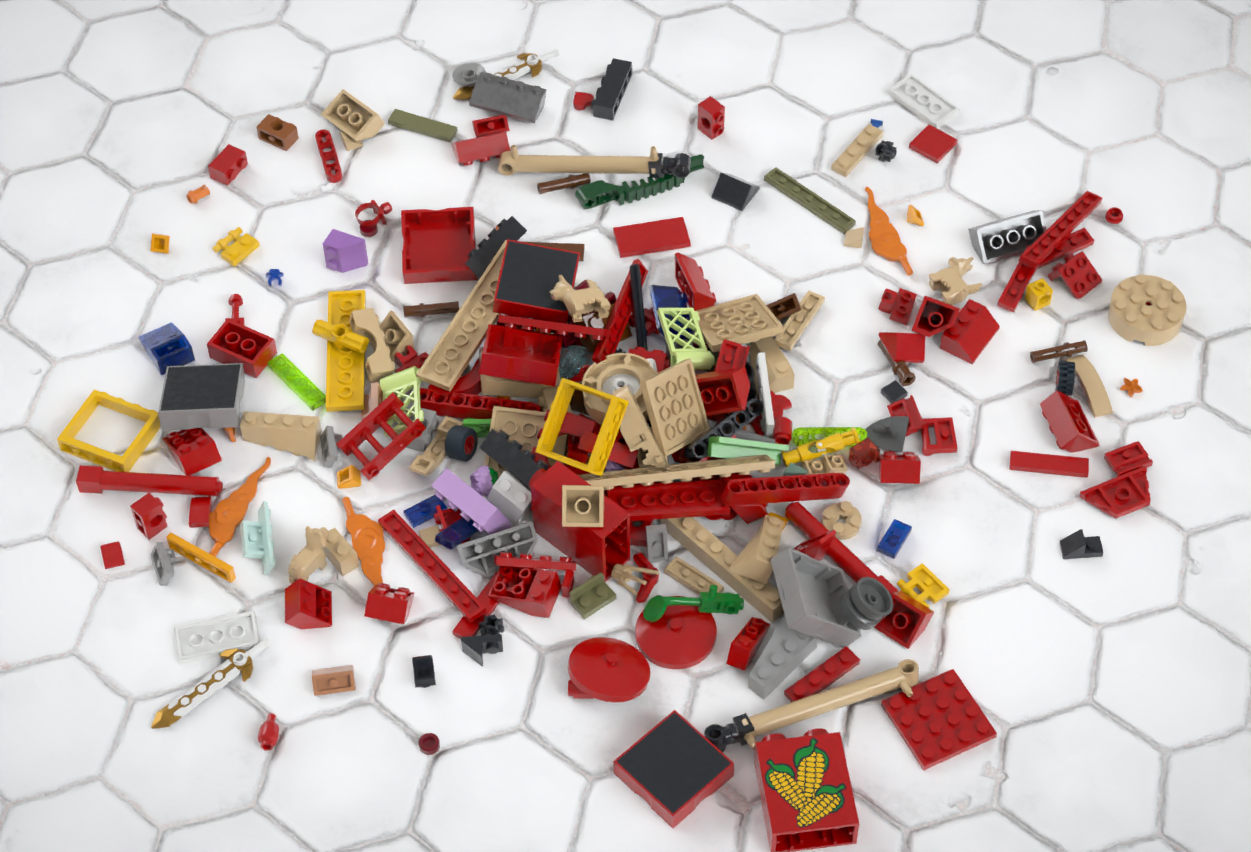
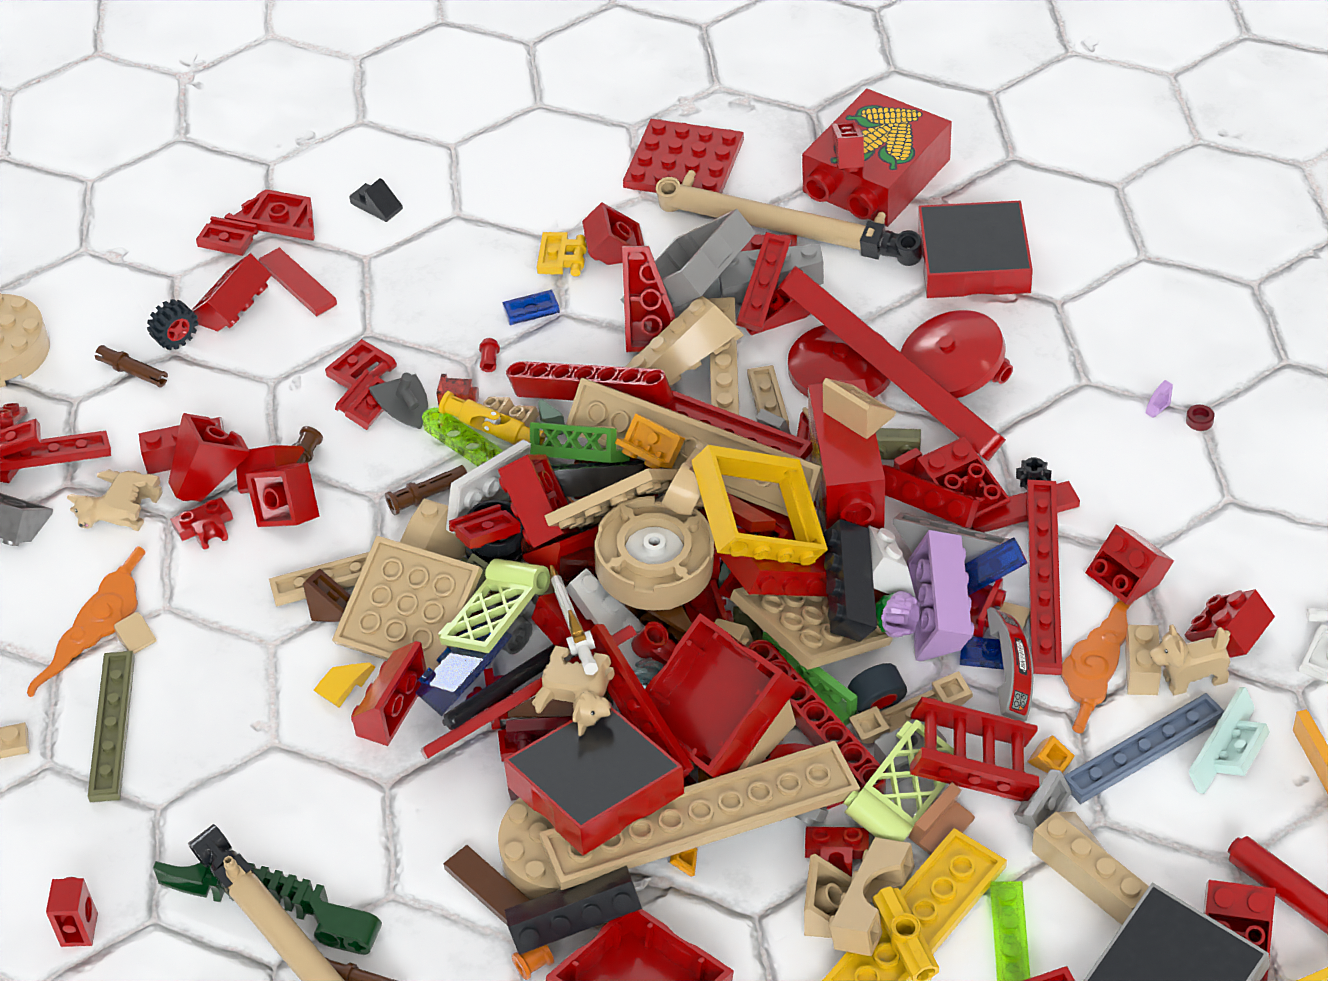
camera: 135 degrees left, 5 degrees down
(200, 512) = (1287, 830): red slope -> none
(232, 510) = (1237, 814): orange piece -> none
(304, 513) = (1143, 748): none -> sand blue tile
(333, 680) = (1256, 536): nougat panel -> none
(406, 502) = (1017, 692): none -> slope
(423, 671) = (1151, 474): black bracket -> none
(430, 309) = (747, 919): reddish brown pin -> none
(460, 736) = (1160, 399): none -> lavender tile
(477, 645) = (1066, 464): black slope -> none
(600, 313) = (580, 641): none -> white sword
(644, 622) = (892, 363): none -> red beam
(651, 237) = (350, 815): red tile -> none
(695, 451) = (651, 442): none -> light orange bracket
(707, 602) = (773, 346): green piece -> none
(728, 282) = (341, 680): none -> yellow slope
(734, 191) = (173, 801): black slope -> none
(764, 627) = (763, 282): none -> red plate
(812, 748) = (848, 146): none -> slope
(813, 388) = (415, 493): none -> reddish brown pin
(837, 551) = (605, 284): red brick -> none
(842, 511) = (558, 345): tan plate -> none
(866, 328) = (282, 495): none -> red slope
(866, 603) = (646, 231): dark grey wheel -> none
(877, 491) = (489, 349): none -> red pin
(894, 392) = (339, 439): black tile -> none
(899, 468) = (439, 353): red slope -> none
(914, 216) = (40, 610): light orange slope -> none
(1038, 294) = (61, 421): yellow brick -> none
(1092, 385) = (135, 334): tan slope -> none
(1131, 386) = (119, 296): orange plant -> none

